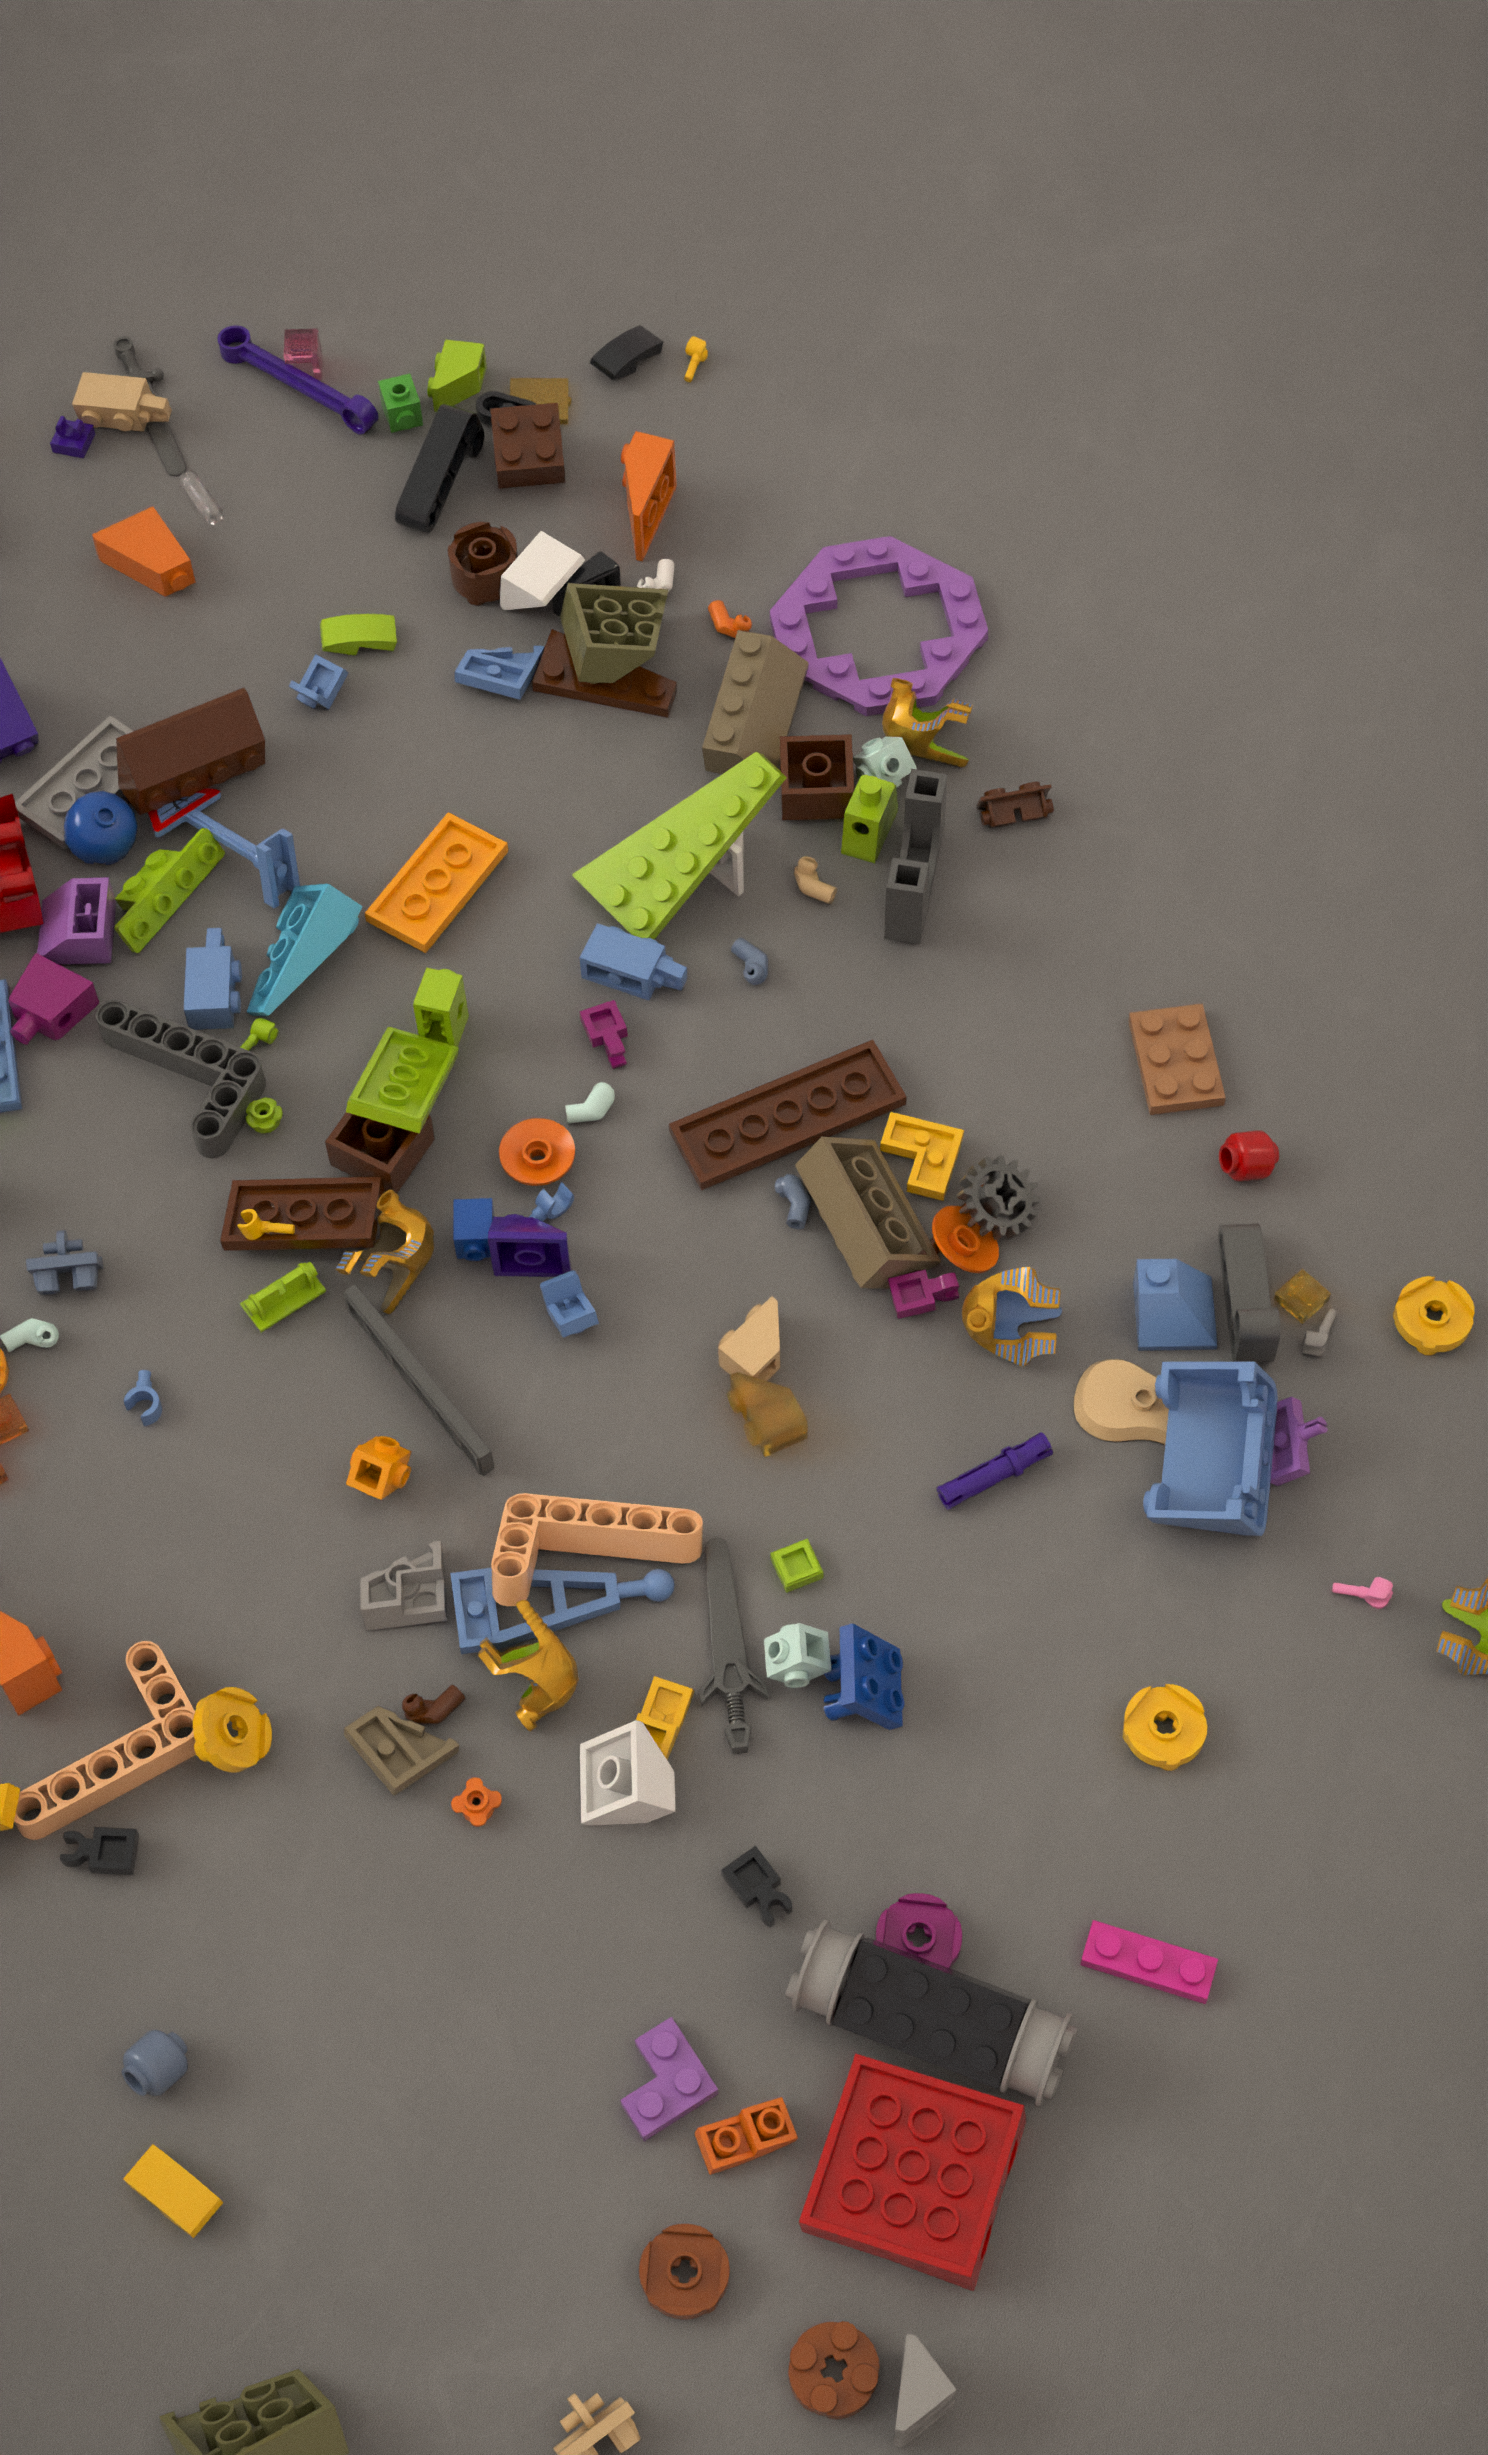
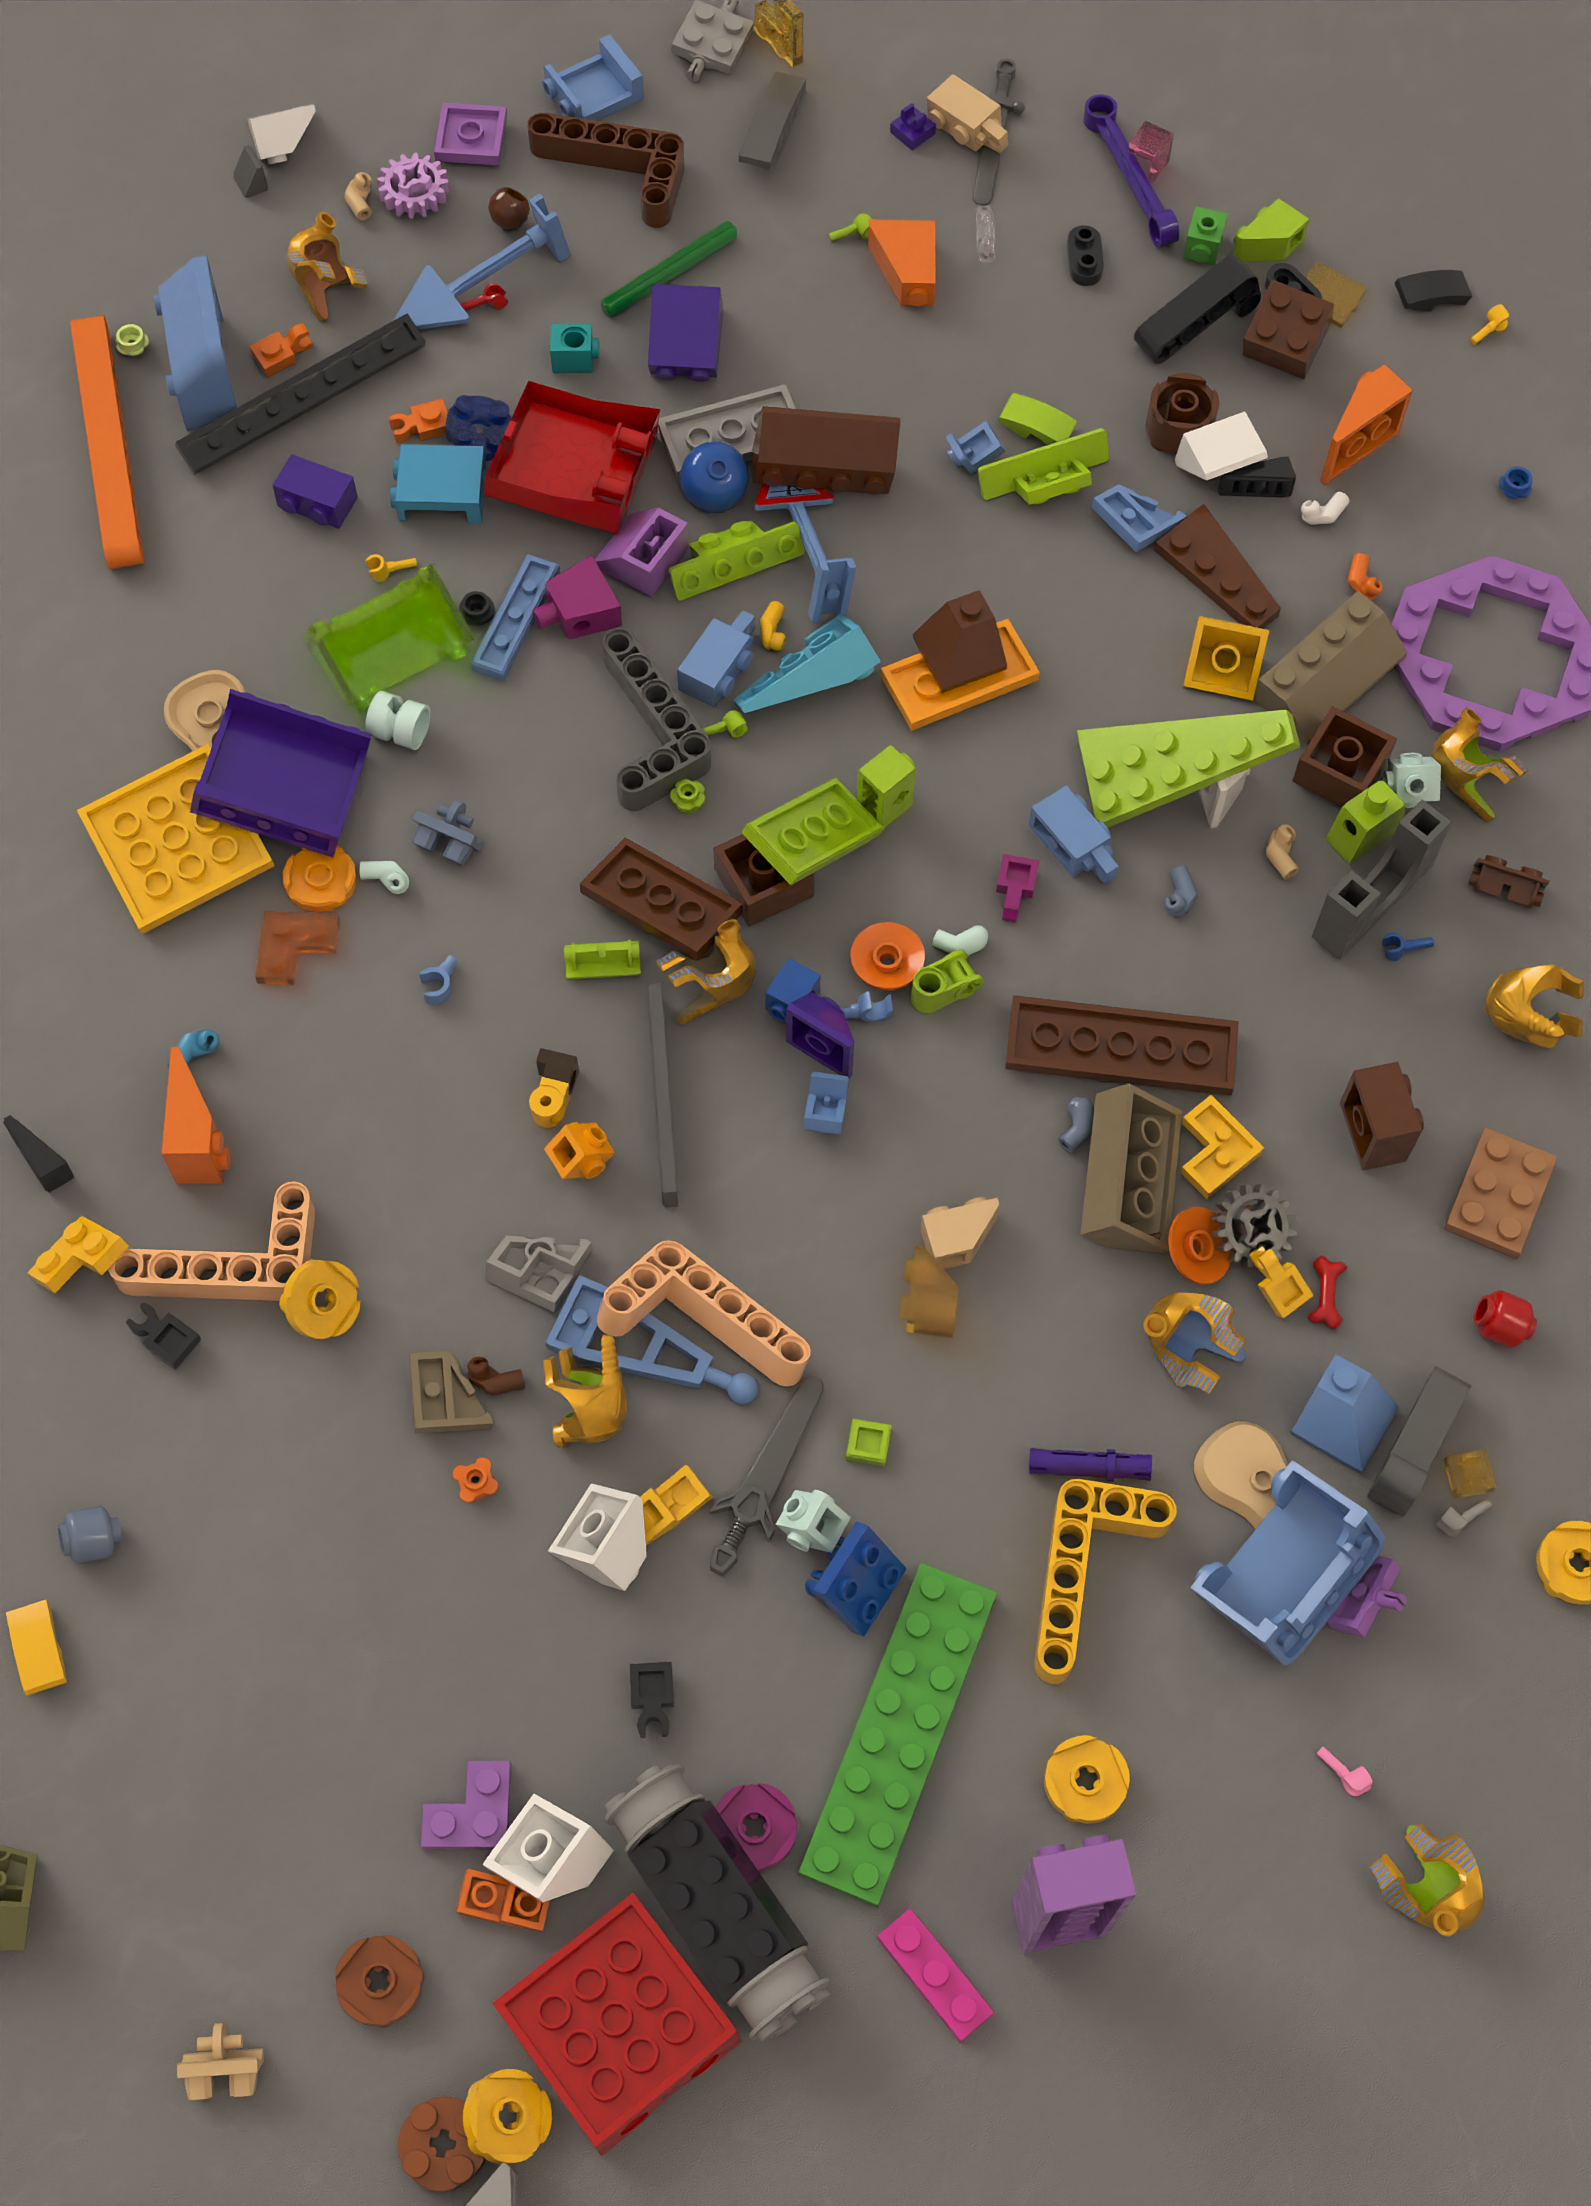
camera: 30 degrees right, 5 degrees up
(83, 544) = (860, 225): none -> lime hand
(236, 929) = (768, 626): none -> yellow arm
(256, 1227) = (614, 889): yellow hand -> none
(298, 468) = (1085, 248): none -> black plate
(319, 1439) = (556, 1086): none -> leg
(396, 670) = (1046, 470): none -> lime bracket
(423, 852) = (961, 642): none -> reddish brown slope
(602, 1141) = (951, 980): none -> lime piece
(611, 628) = (1251, 531): olive wedge -> none
(658, 746) = (1226, 658): none -> yellow slope
(759, 2065) = (548, 1852): none -> white slope
(803, 477) = (1516, 476): none -> blue plate
(859, 2323) = (482, 2122): none -> yellow plate
(917, 1294) = (1126, 1267): magenta plate -> none
(964, 903) = (1404, 945): none -> blue hand
(986, 1789) = (897, 1735): none -> bright green plate
(1038, 1556) = (1074, 1561): none -> yellow beam
(1043, 1048) = (1381, 1115): none -> reddish brown brick
(1055, 1231) = (1283, 1284): none -> yellow plate
(1087, 900) = (1511, 1010): none -> pearl gold piece
(1101, 1233) = (1326, 1310): none -> red piece
(1230, 1805) = (1072, 1893): none -> medium lavender brick

